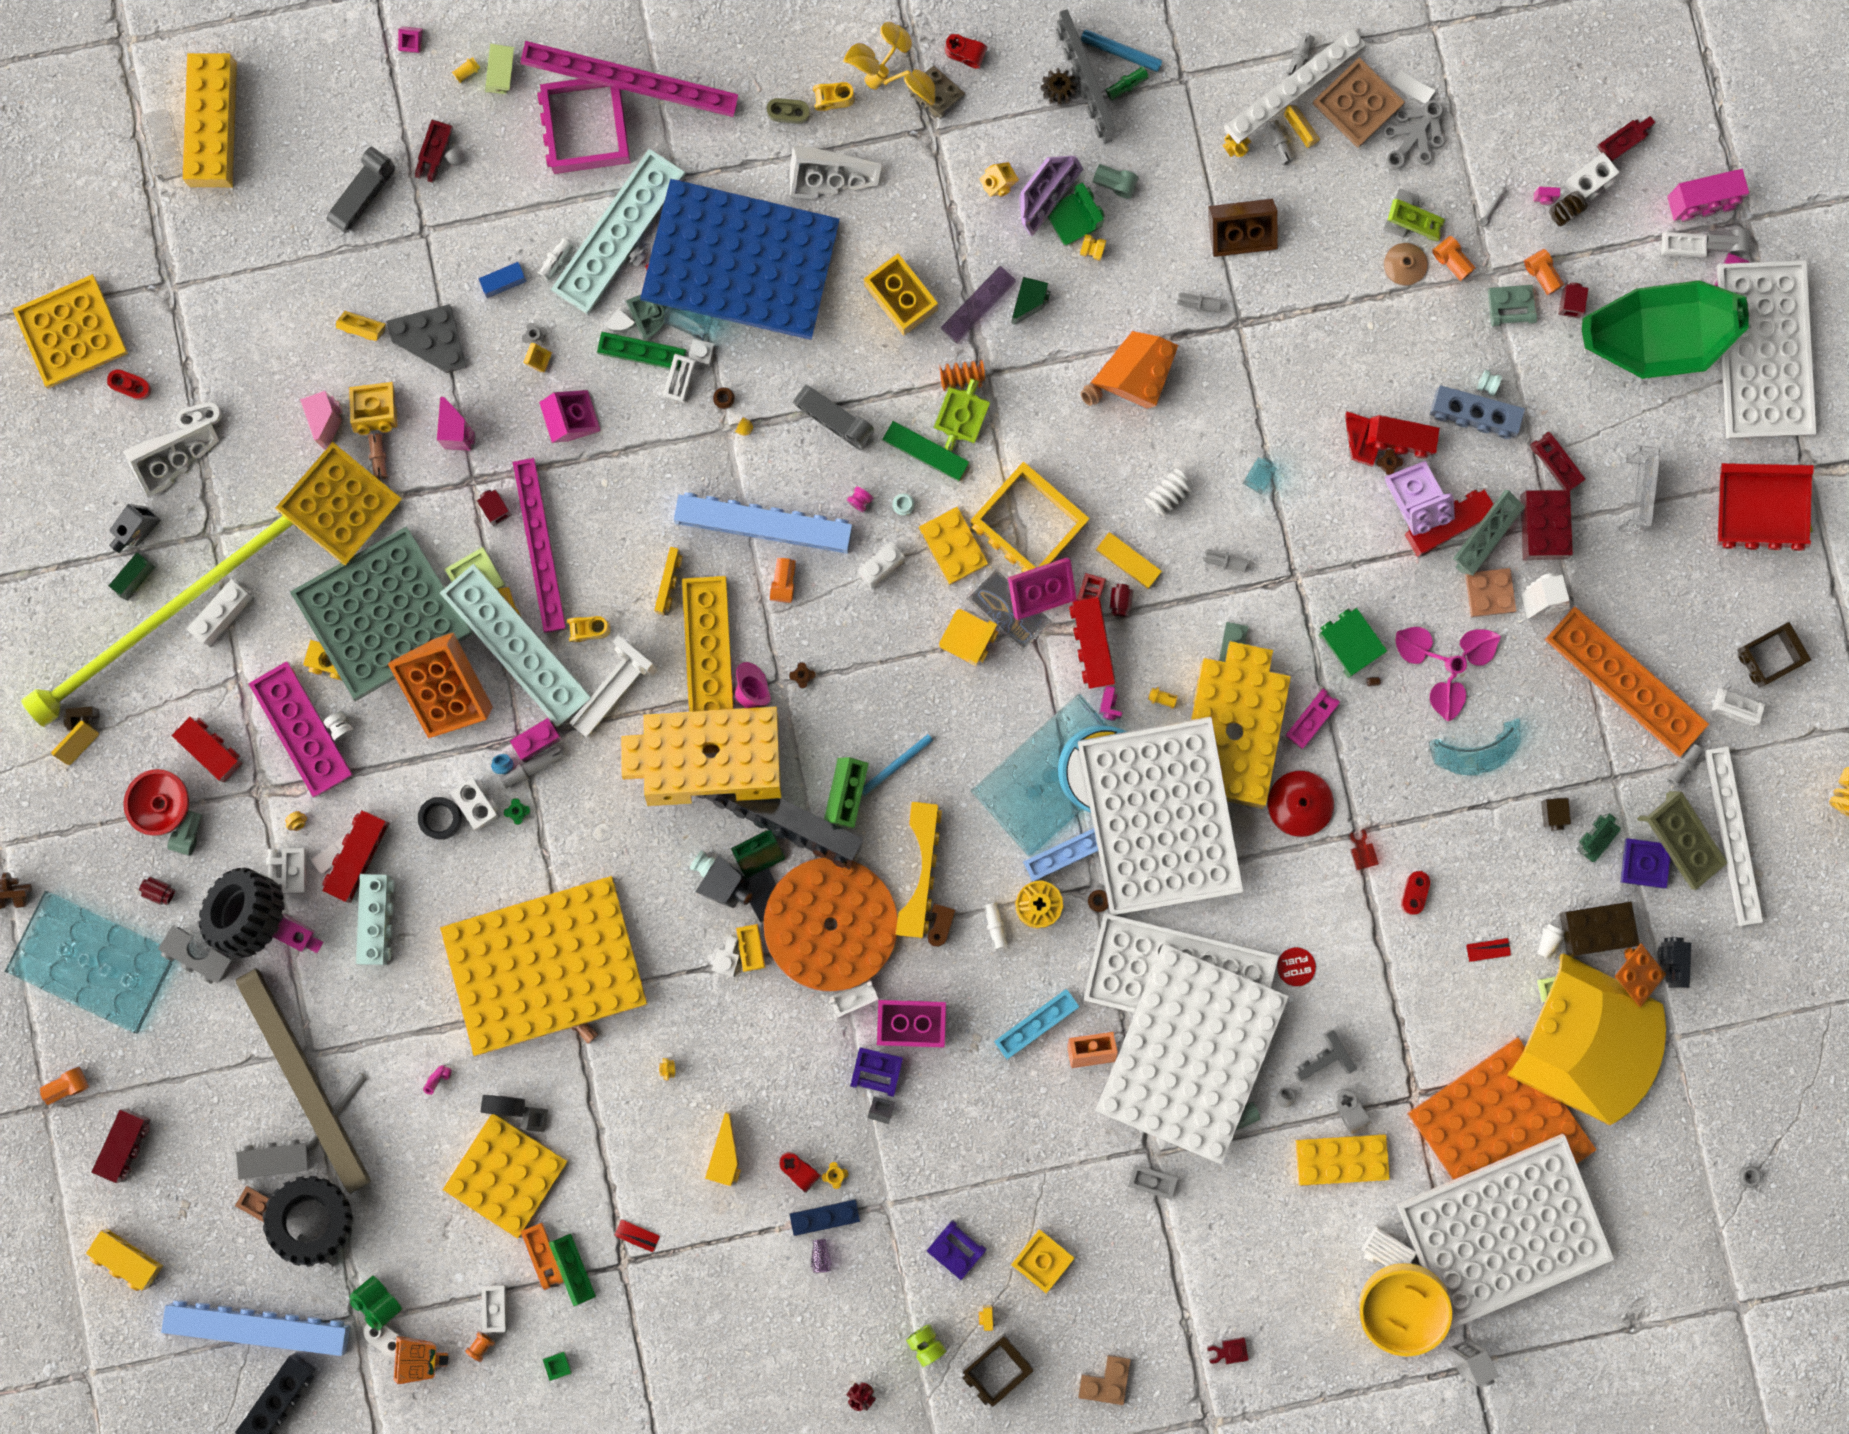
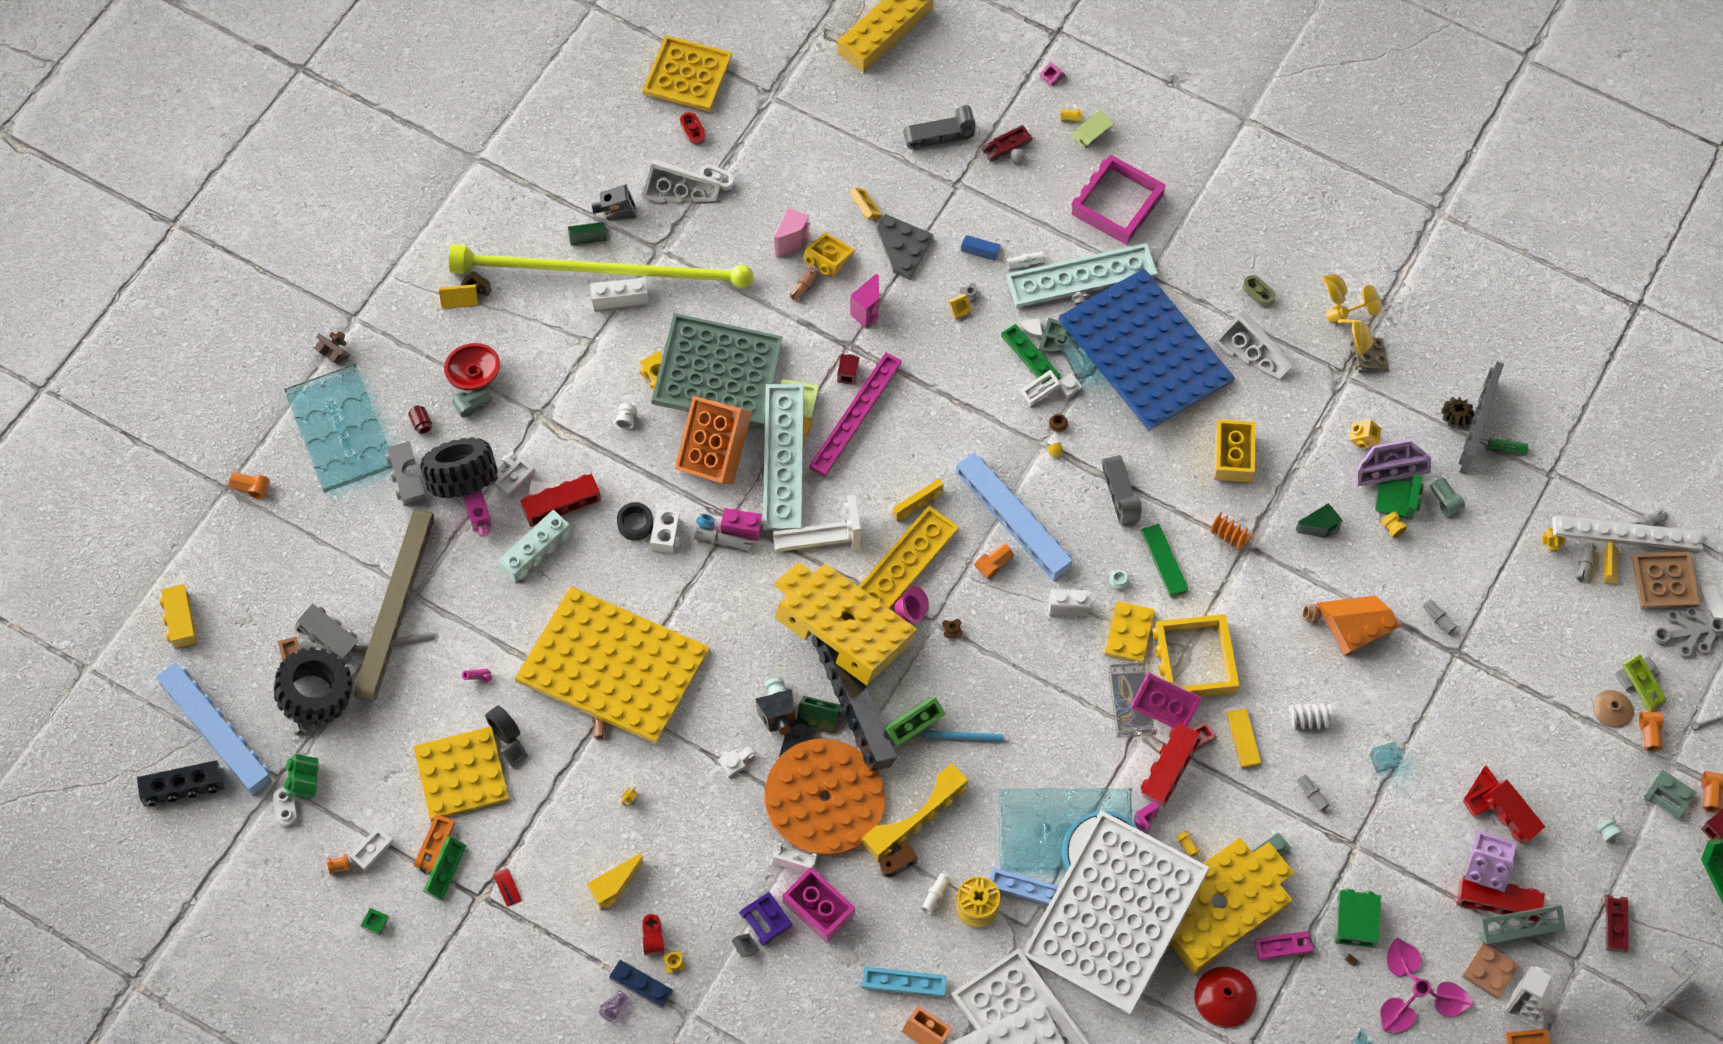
camera: 40 degrees right, 20 degrees down
(121, 1146) = (246, 547): dark red brick -> none
(207, 748) = (534, 364): red brick -> none
(295, 821) = (544, 449): yellow plate -> none
(300, 729) = (601, 400): dark pink plate -> none
(338, 503) = (753, 287): yellow plate -> none
(416, 1360) = (292, 835): orange torso -> none
(523, 811) = (687, 563): green plate -> none
(569, 415) = (948, 354): dark pink slope -> none
(583, 628) = (836, 485): yellow piece -> none
(628, 78) = (1171, 192): dark pink plate -> none
(750, 947) = (757, 767): yellow plate -> none
(831, 96) = (1295, 302): yellow piece -> none
(860, 499) = (1092, 552): dark pink wheel -> none
(961, 414) = (1209, 554): lime plate -> none
(968, 51) = (1412, 344): red piece -> none
(968, 637) = (1087, 695): yellow bracket -> none
(978, 304) = (1282, 500): clear purple plate -> none
(1091, 901) = (1021, 933): reddish brown plate -> none
(1121, 50) = (1521, 424): dark azure axle -> none
(1121, 600) = (1215, 757): dark red brick -> none
(1243, 227) = (1512, 593): reddish brown slope -> none
(1383, 462) = (1484, 827): reddish brown plate -> none
(1510, 414) = (1582, 830): sand blue brick -> none
(1546, 525) = (1573, 956): dark red brick -> none

